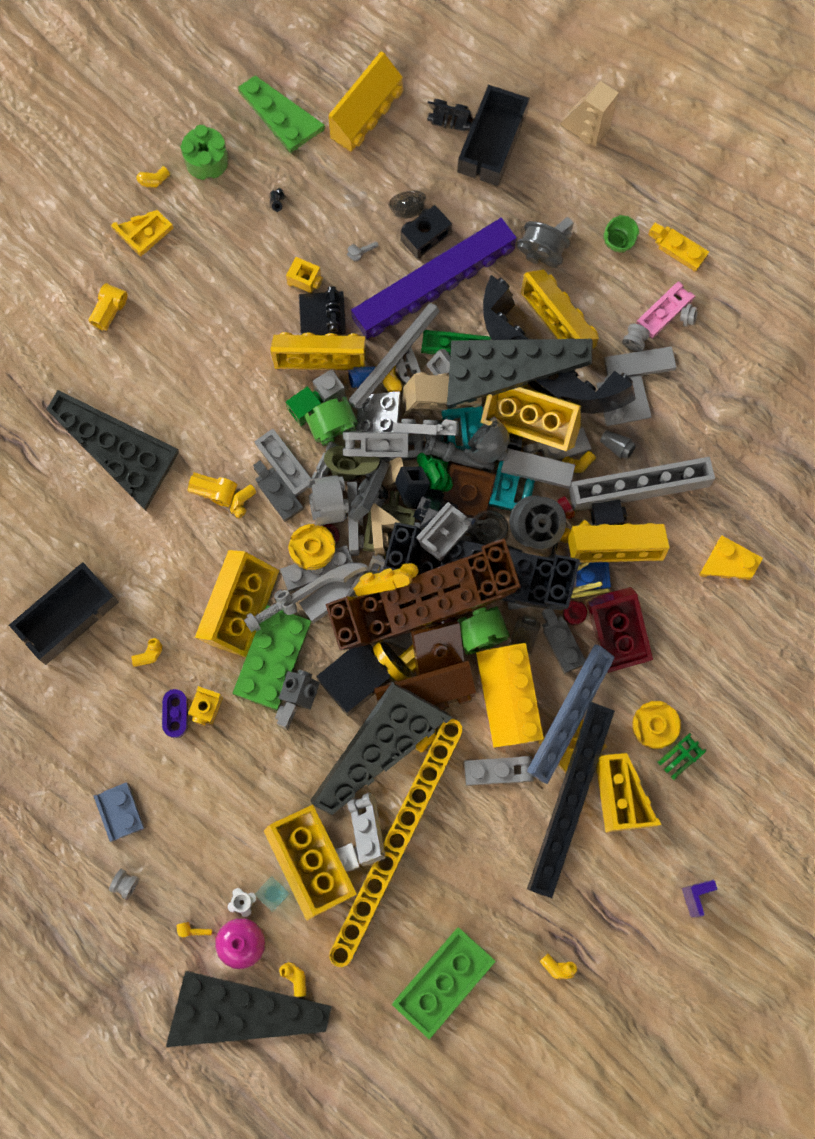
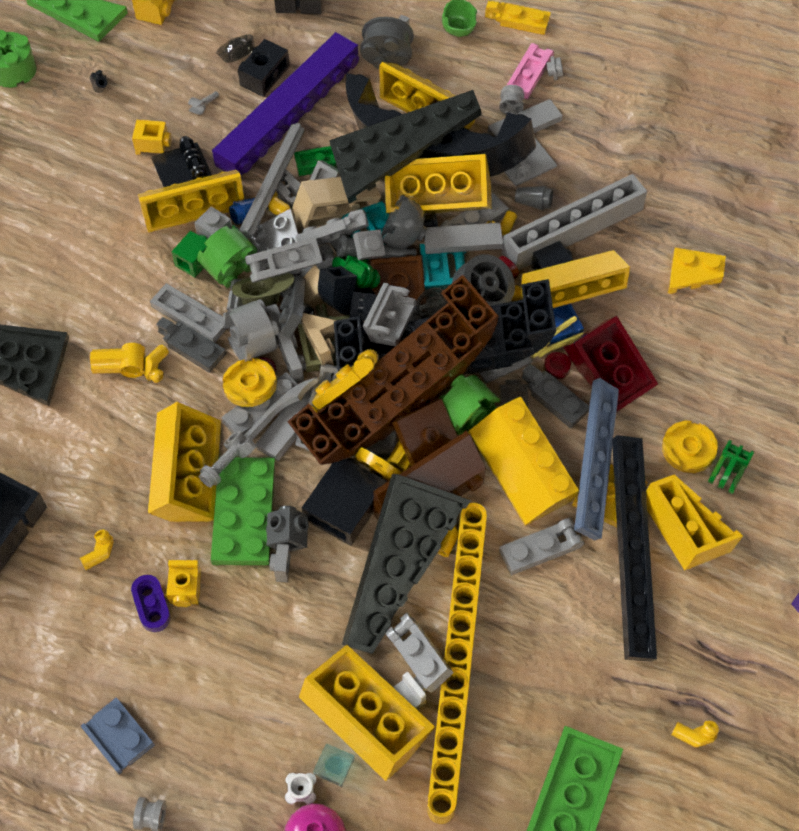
camera: 20 degrees left, 15 degrees down
(452, 454) = (369, 244): none -> light grey plate

